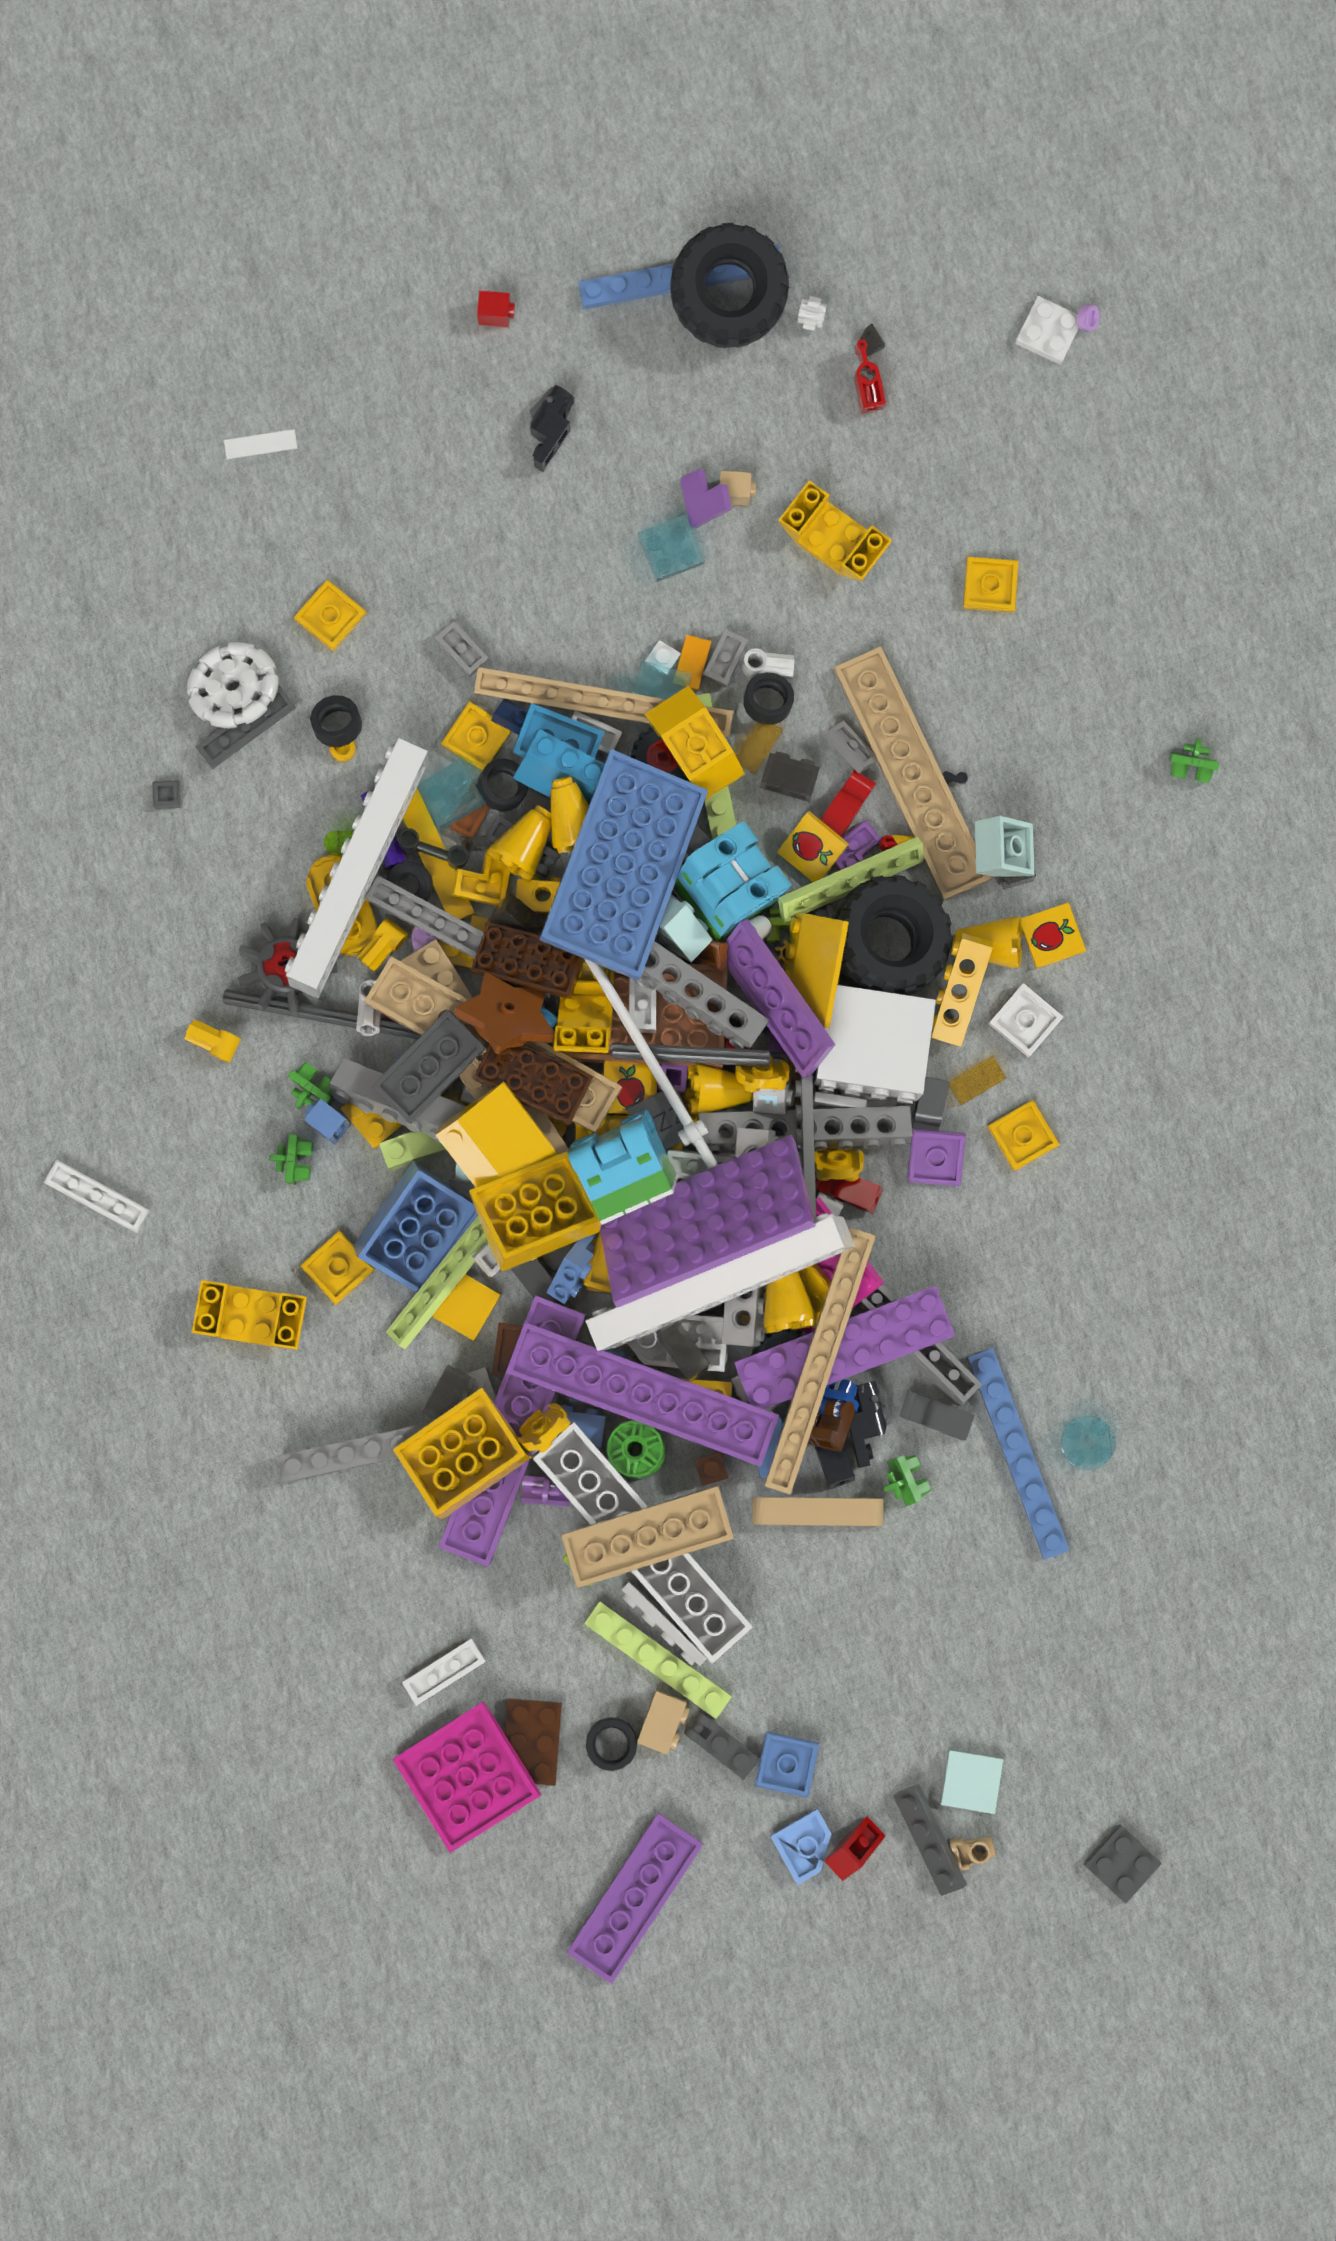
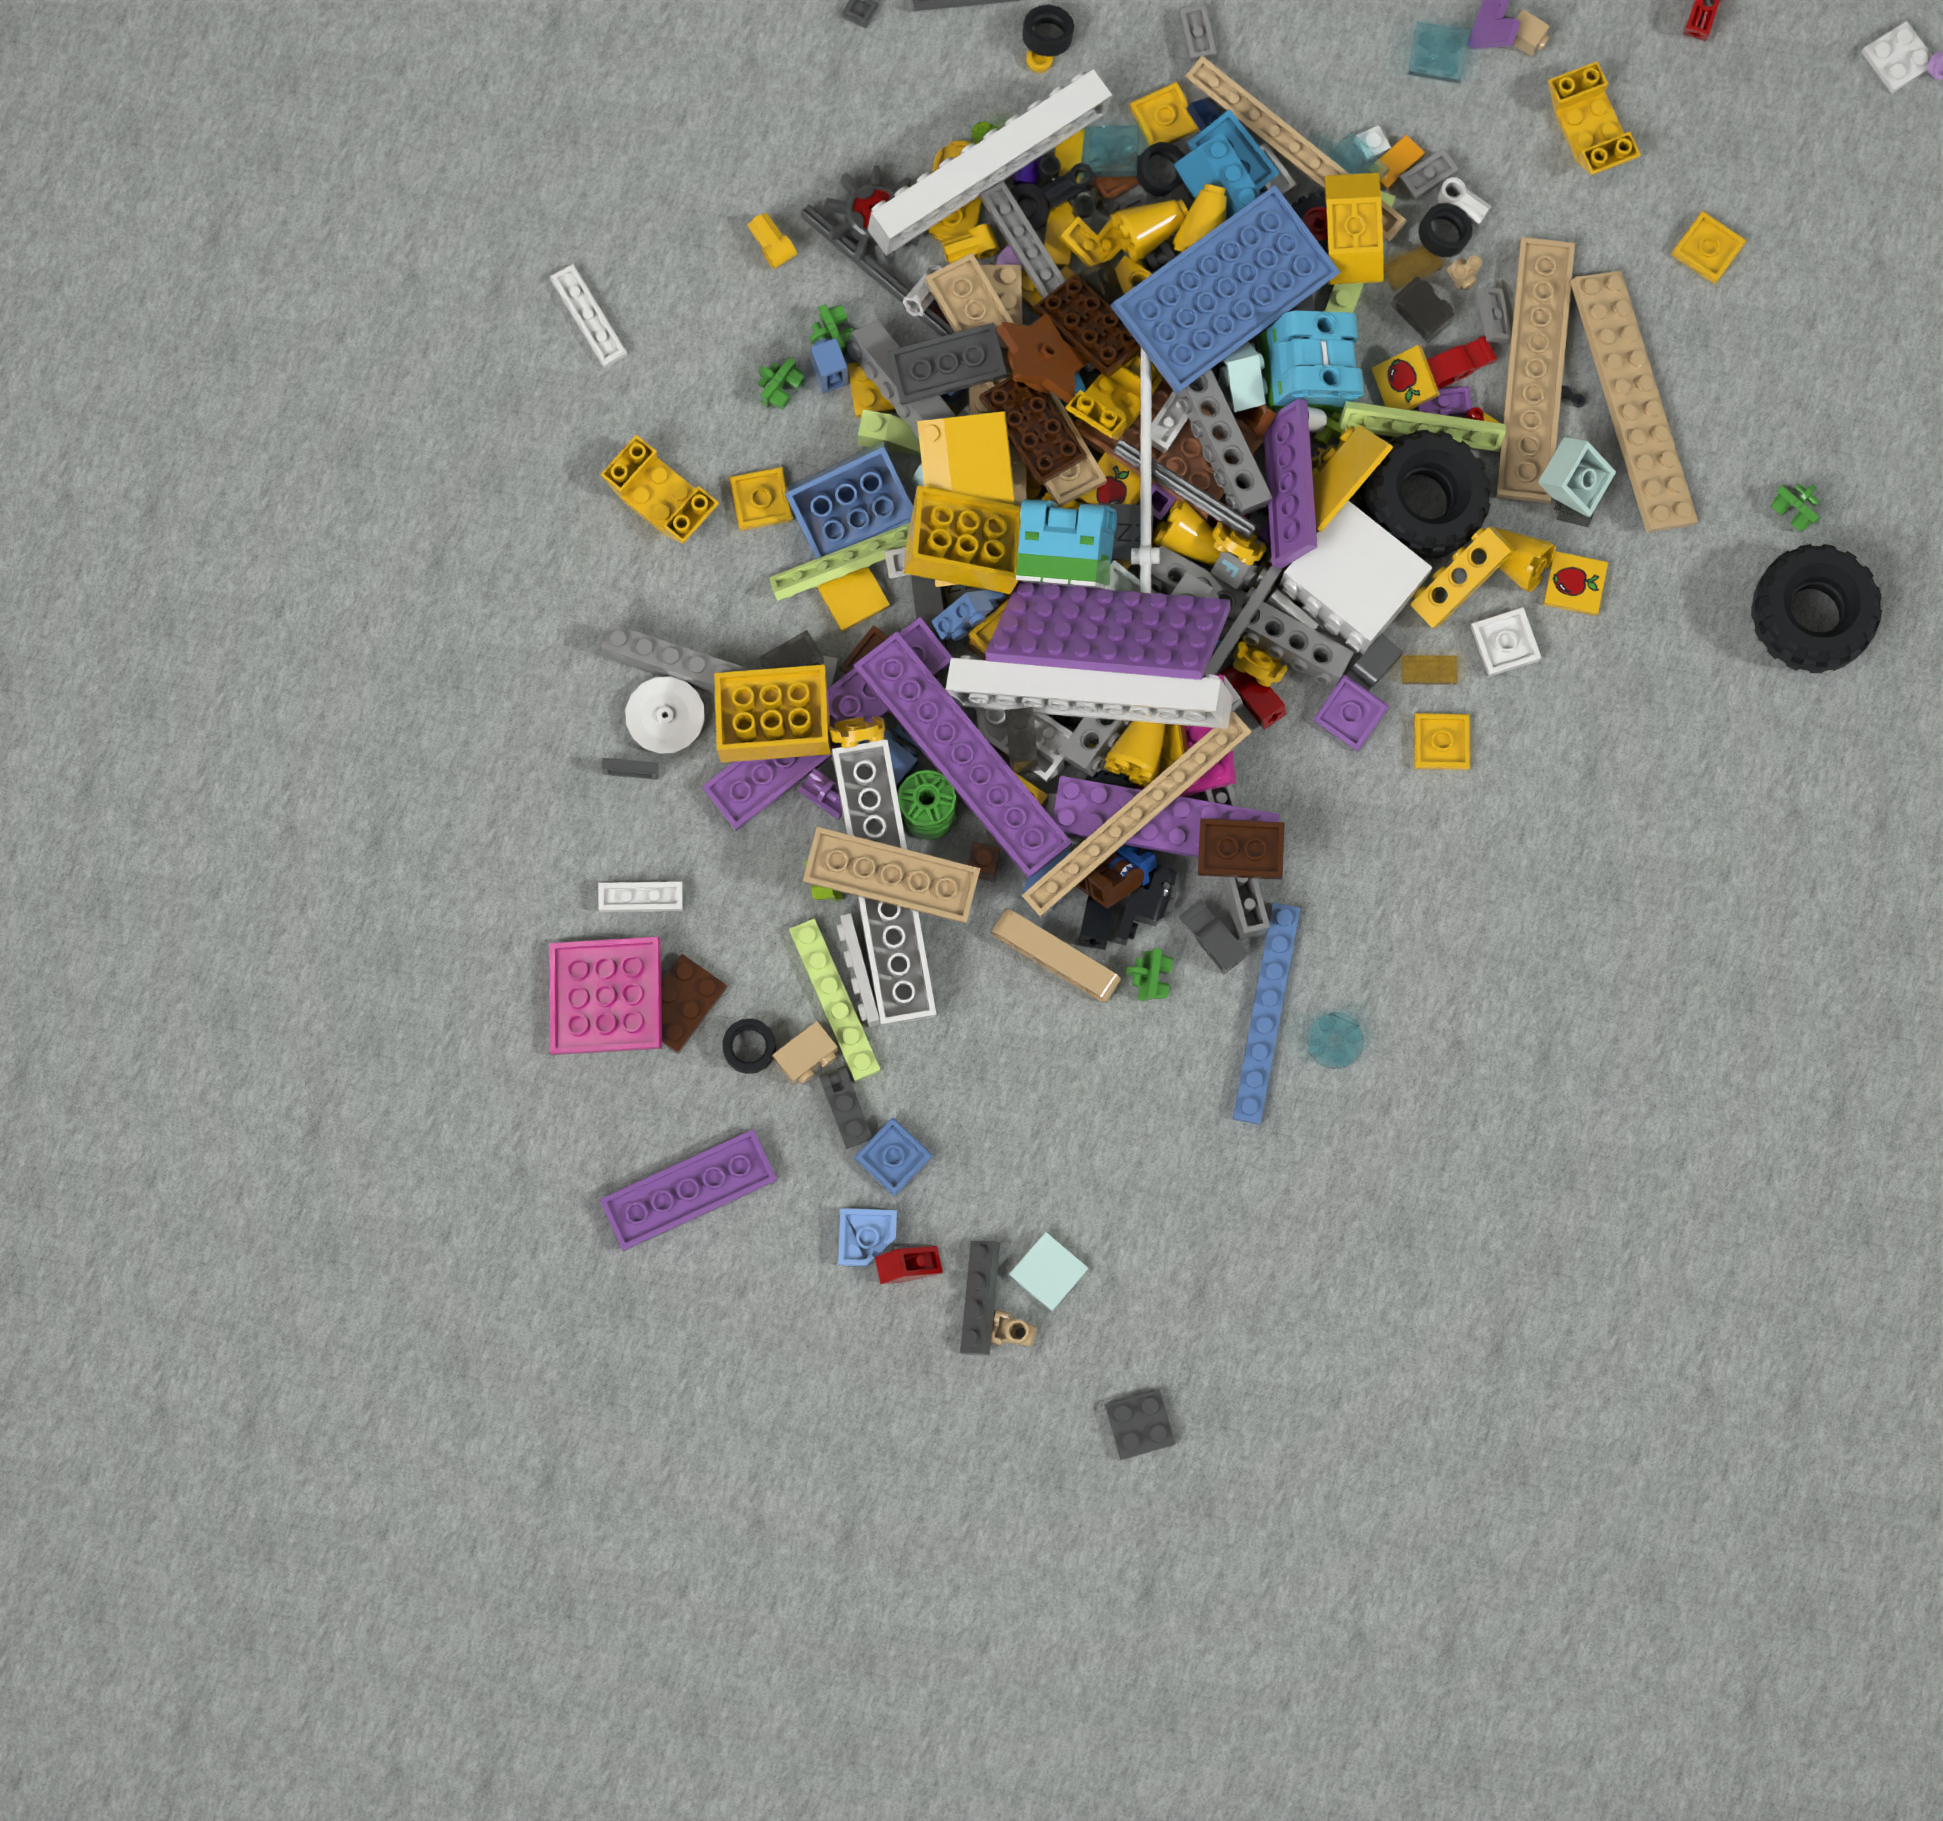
camera: 30 degrees right, 5 degrees down
(352, 1508) = (660, 698): none -> white piece
(369, 1567) = (630, 768): none -> dark grey tile
(435, 849) = (1067, 188): none -> black piece
(805, 725) = (1464, 271): none -> tan plate
(923, 1337) = (1241, 849): none -> reddish brown plate
(1008, 753) = (1634, 401): none -> tan plate
(1285, 812) = (1838, 577): none -> black tyre

